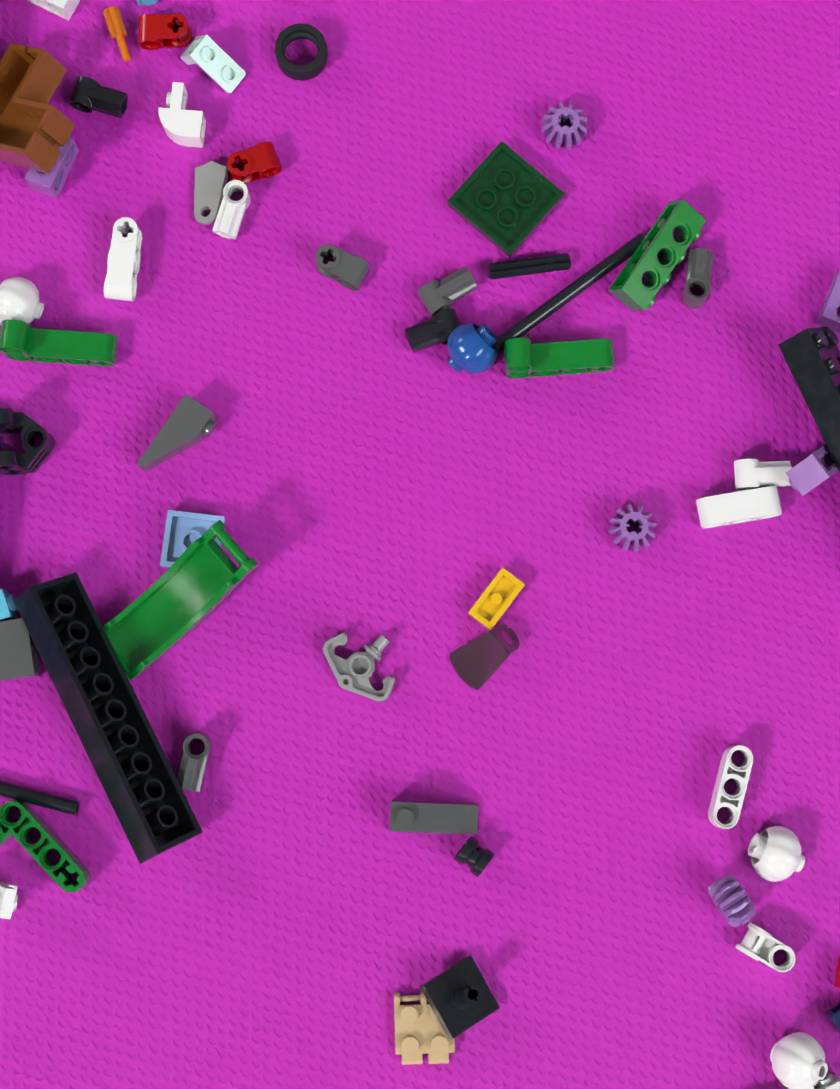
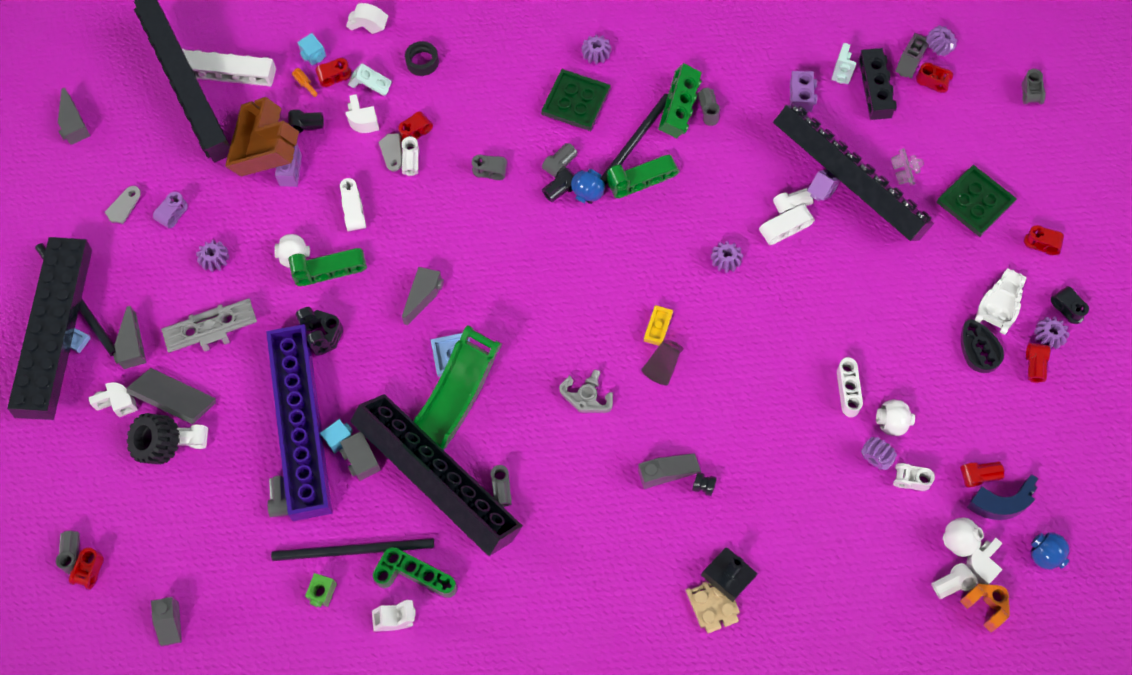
camera: 15 degrees left, 15 degrees down
(529, 266) = (604, 132): black axle -> none

